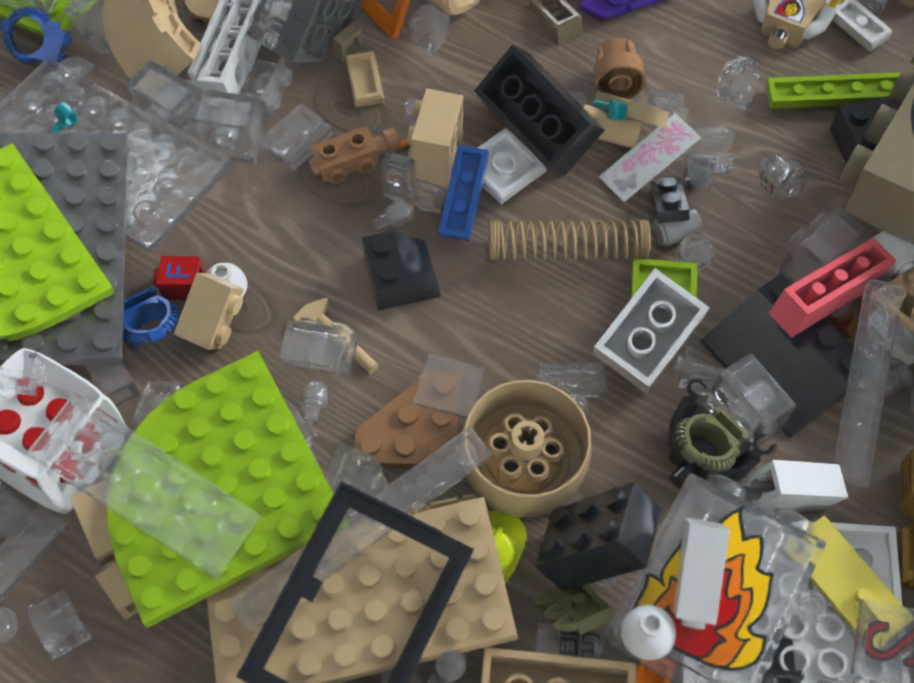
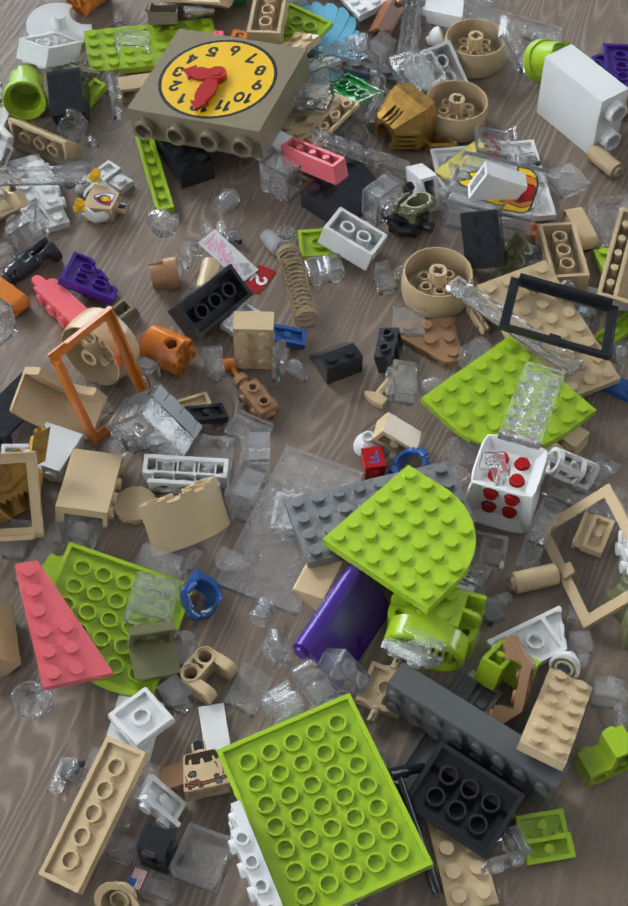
camera: 100 degrees left, 10 degrees down
(49, 560) = (574, 470): none -> white piece
(66, 117) = (272, 545): teal hand -> none
(333, 85) = (208, 413): none -> black hinge
(394, 342) = (388, 347): none -> black brick
(458, 48) = (168, 348): none -> orange cylinder
(599, 288) = (324, 269): none -> clear brick
(605, 202) = (260, 279): none -> red sticker
(616, 110) = (204, 264): teal hand -> none
(638, 110) = (197, 263): tan beam -> none
(648, 632) = (531, 203): white brick -> none
(669, 200) = (258, 243): black plate -> none
(843, 47) = (121, 183): none -> white plate

